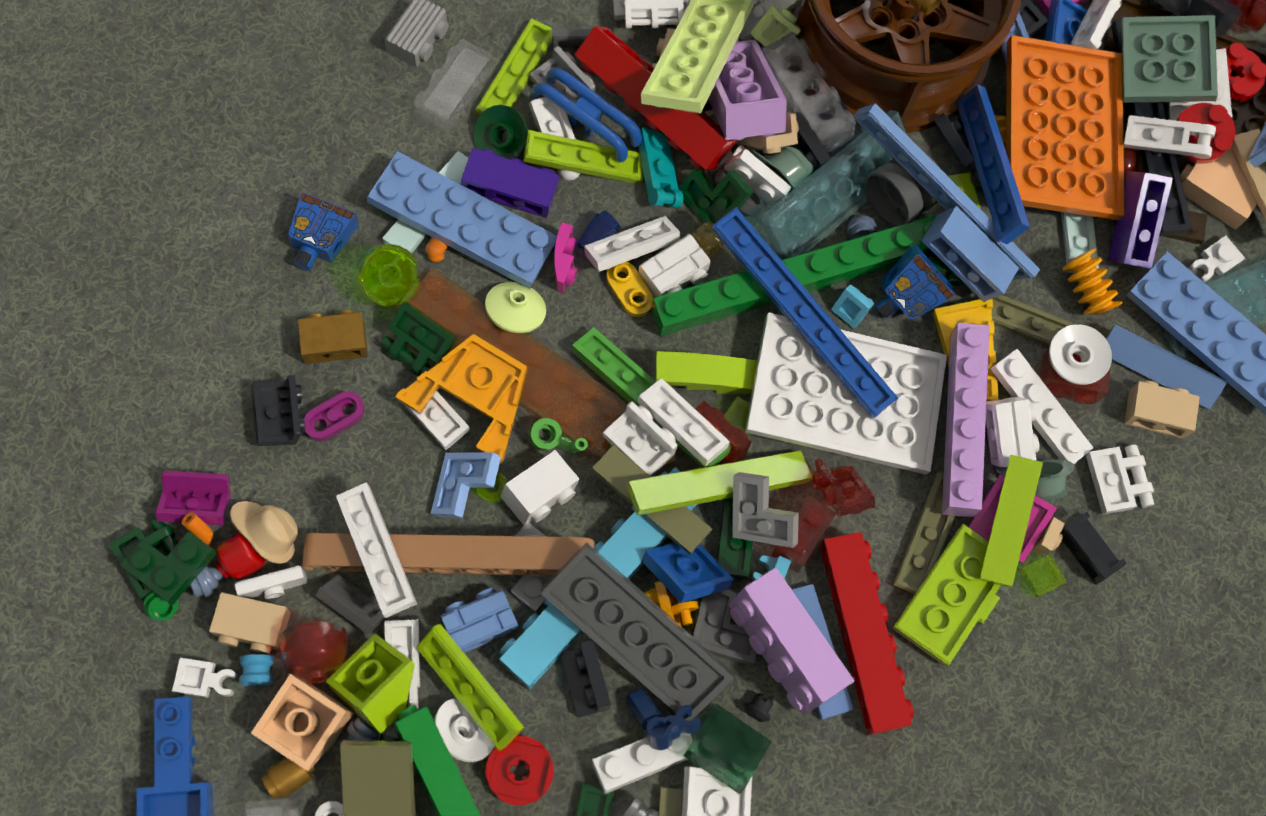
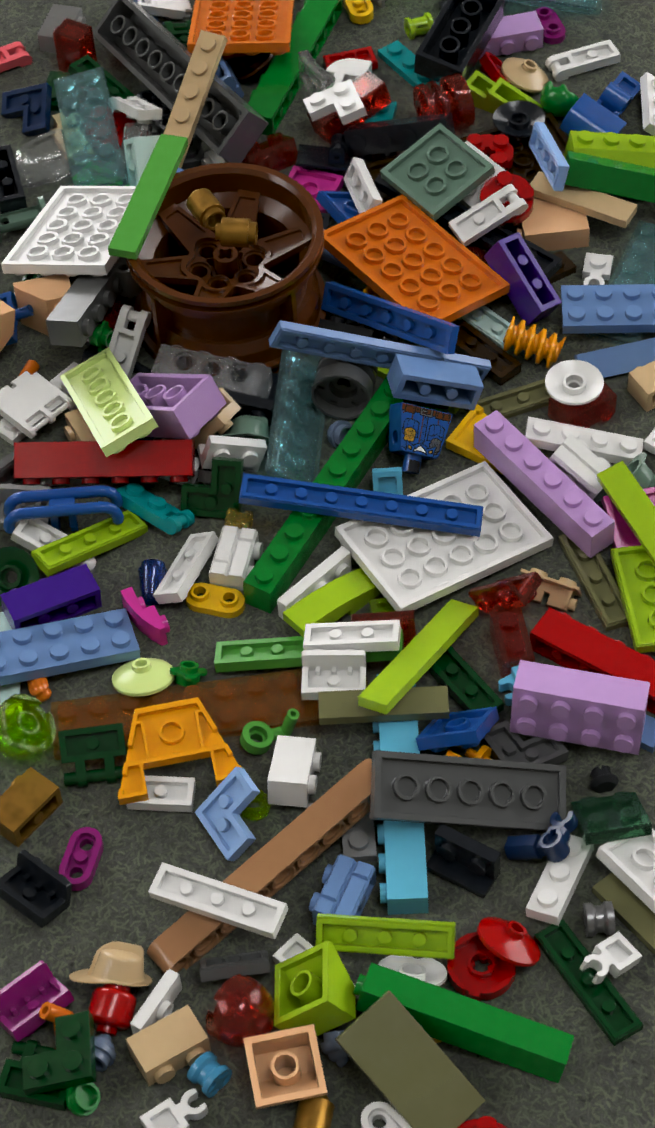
camera: 30 degrees left, 20 degrees down
(549, 334) = (188, 673): none -> green plate
(554, 773) = (509, 941): none -> red dish
(739, 344) = (330, 569): none -> white plate
(754, 519) = (470, 655): light grey plate -> none
(775, 25) = (144, 351): yellowish green bracket -> none
(888, 522) = (560, 591): none -> tan hinge
(1045, 252) = (474, 344): none -> dark brown plate

